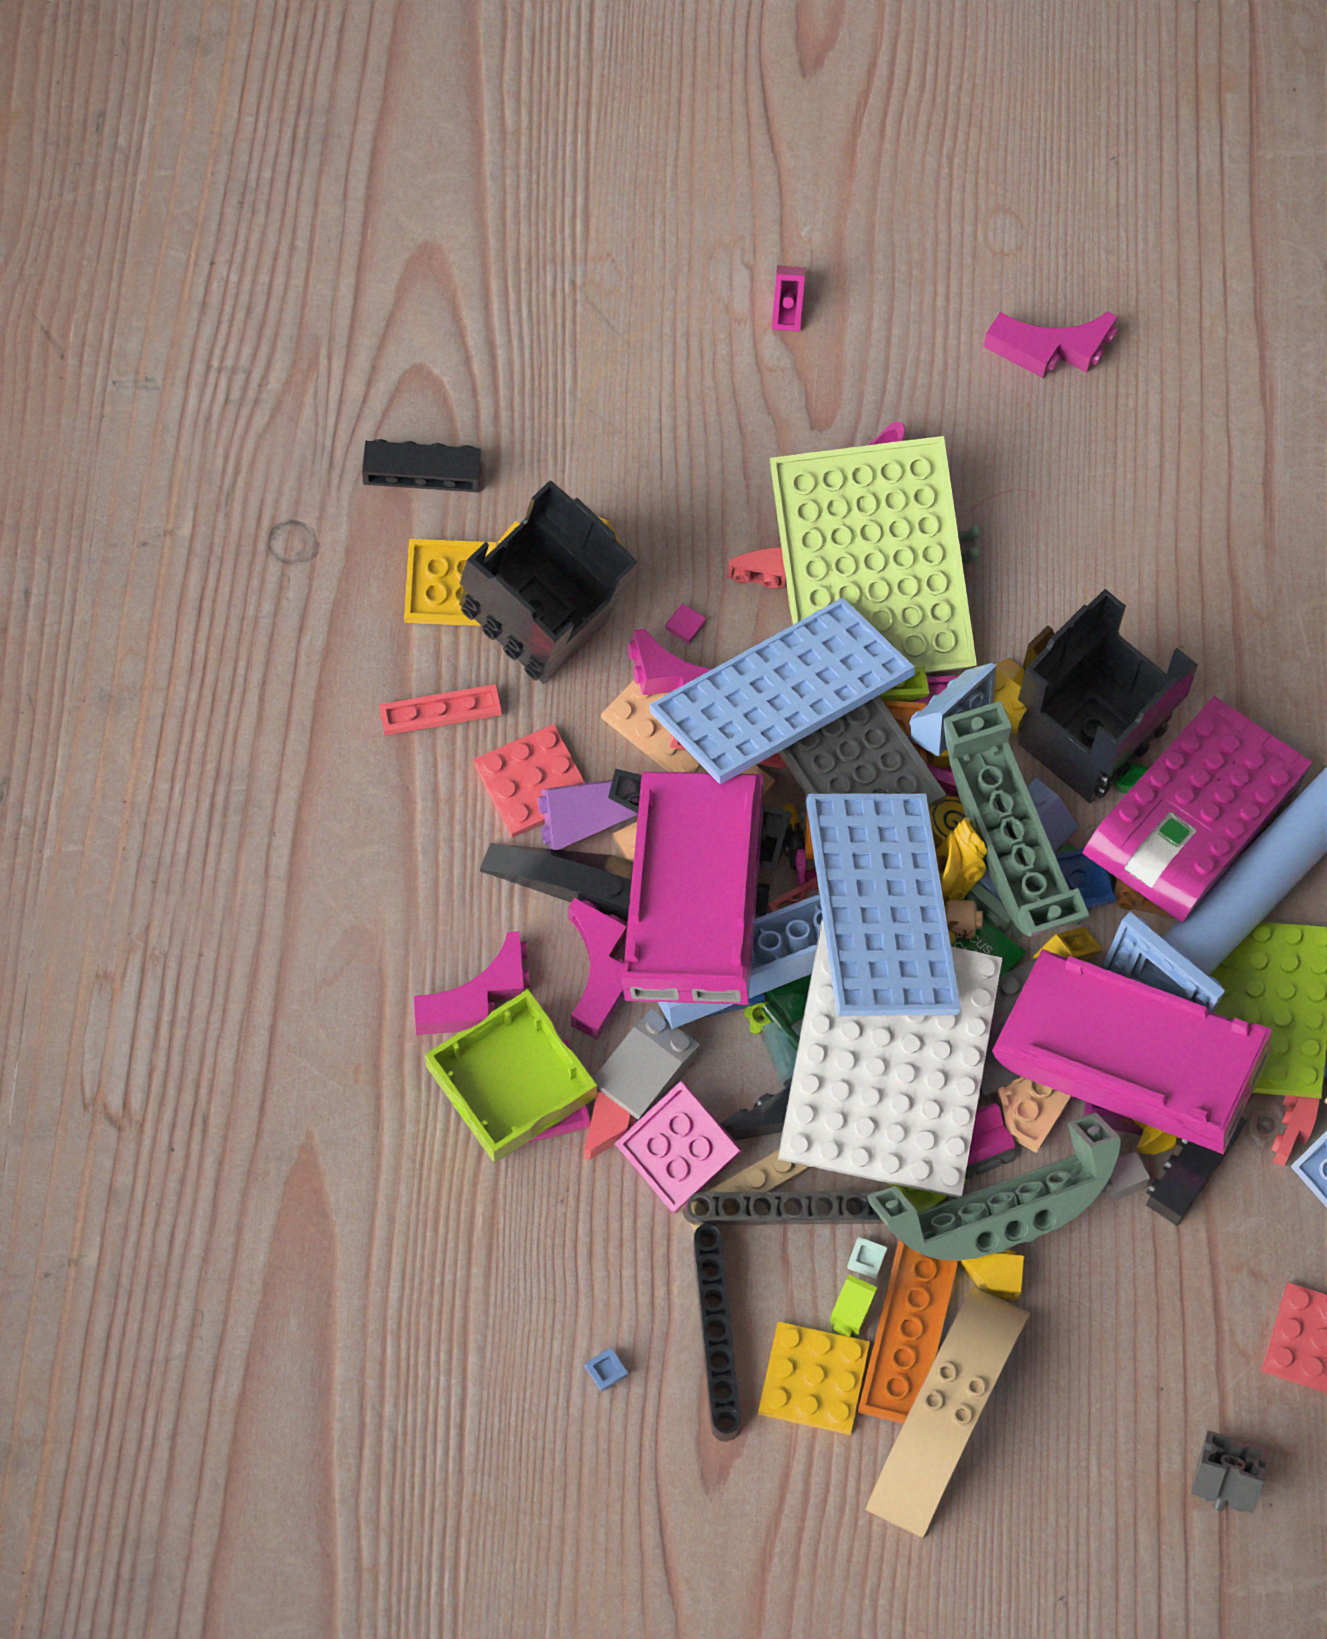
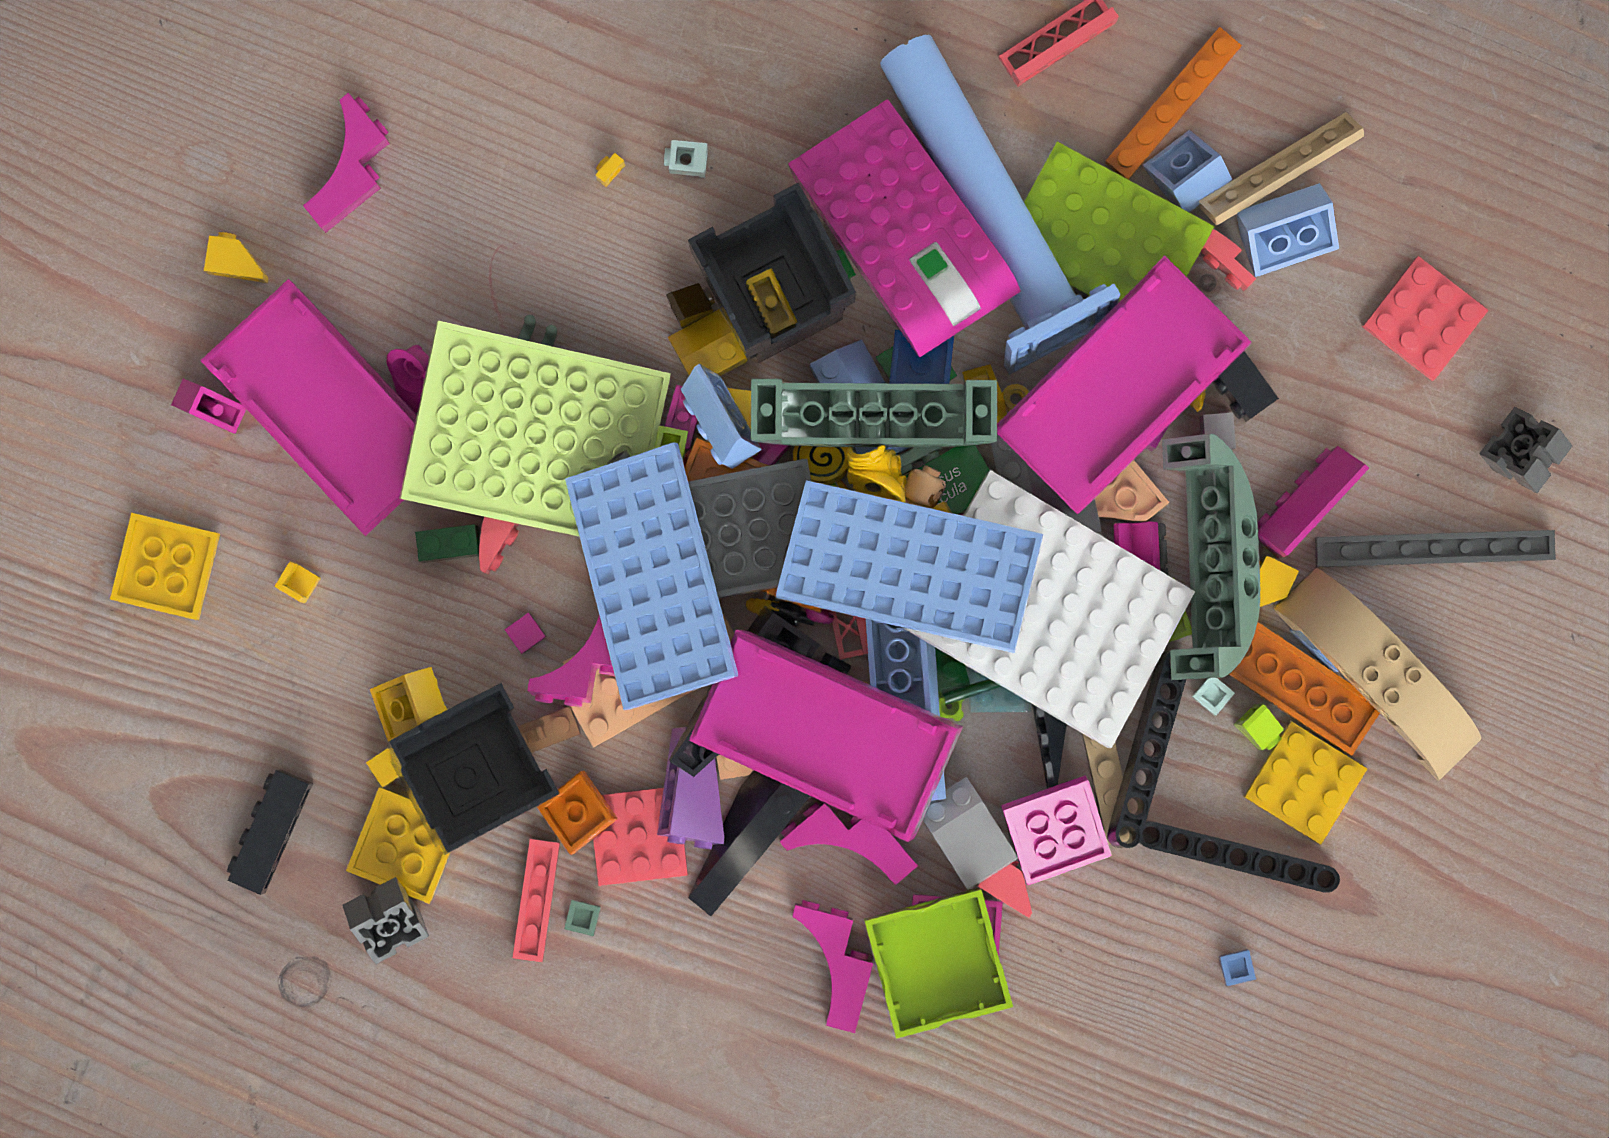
camera: 70 degrees left, 20 degrees up
(376, 581) = (385, 920): none -> dark grey brick
(438, 754) = (582, 917): none -> sand green plate
(535, 716) = (577, 812): none -> orange tile
(601, 671) = (549, 729): none -> medium nougat plate
(630, 308) = (165, 566): none -> yellow plate
(658, 416) = (297, 582): none -> yellow panel
(741, 525) = (447, 543): none -> dark green brick
(830, 374) = (320, 403): none -> dark pink piece
(927, 274) = (232, 259): none -> yellow slope
(1084, 714) = (771, 303): none -> yellow brick
(1091, 1283) = (1310, 501): none -> dark pink slope
(1096, 1426) = (1435, 548): none -> dark grey plate
(1142, 556) = (609, 169): none -> yellow plate
(1190, 624) = (695, 150): none -> light aqua brick

